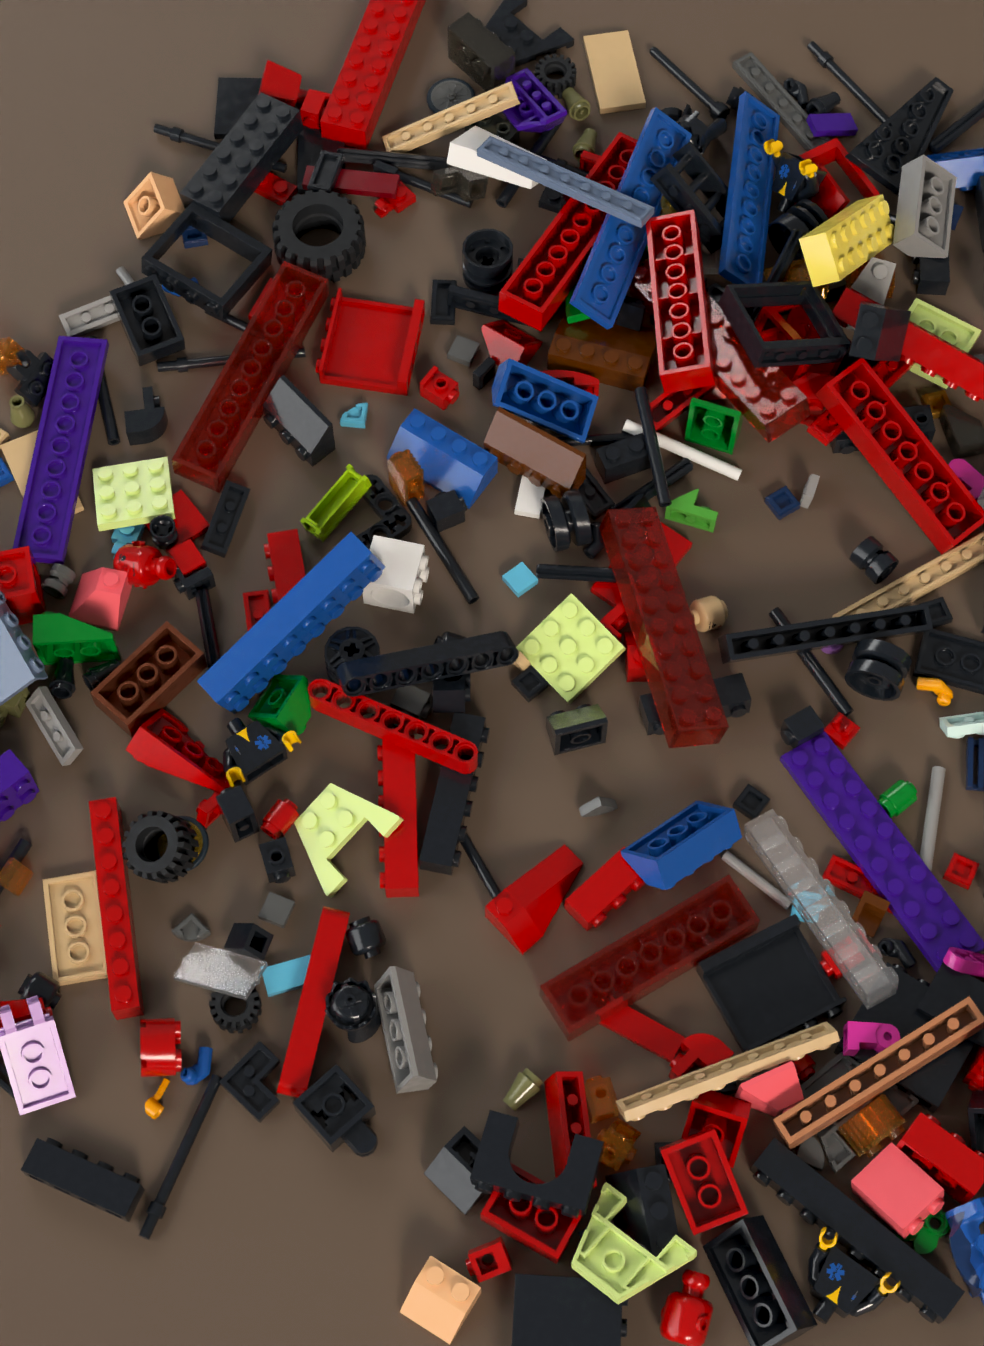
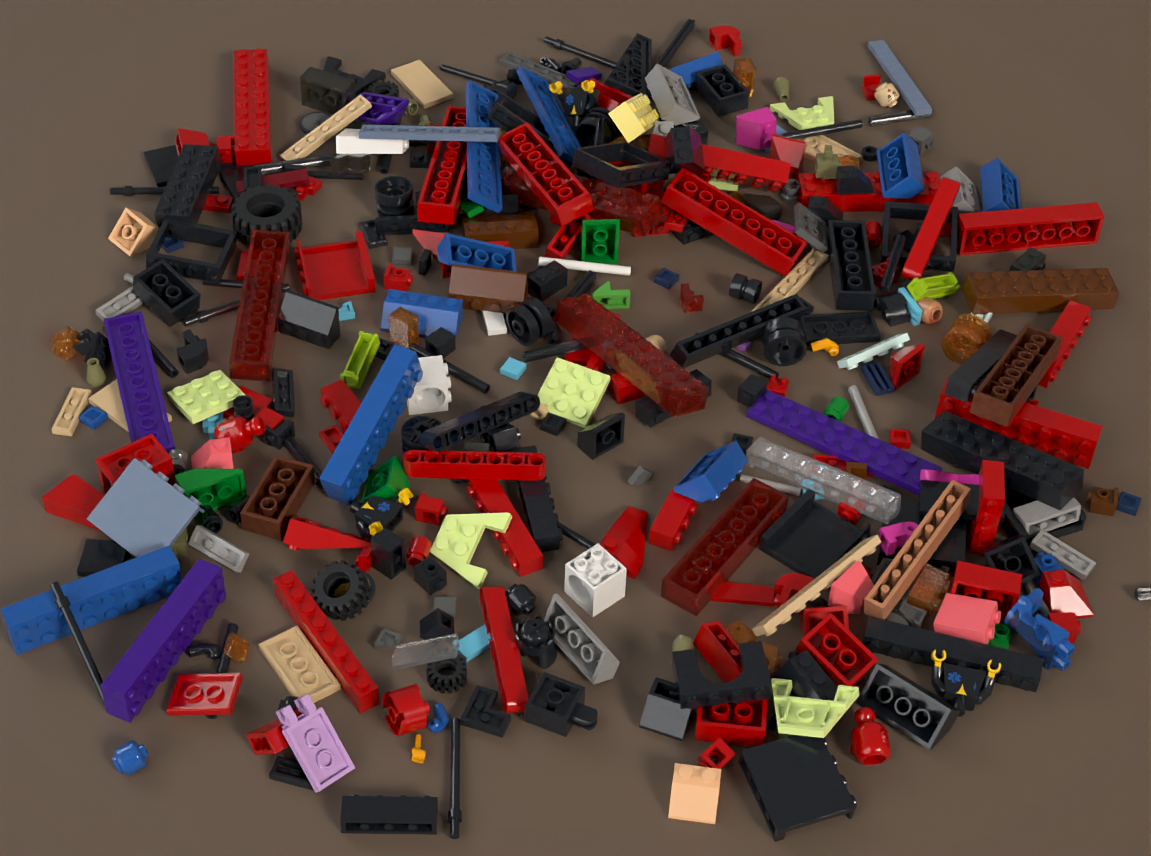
camera: 25 degrees left, 20 degrees down
(320, 762) = (430, 510): none -> red brick
(463, 949) = (595, 580): none -> white brick
(652, 447) = (566, 263): black piece -> none
(791, 553) = (690, 302): none -> clear red bracket
(809, 490) = (681, 264): light grey tile -> none

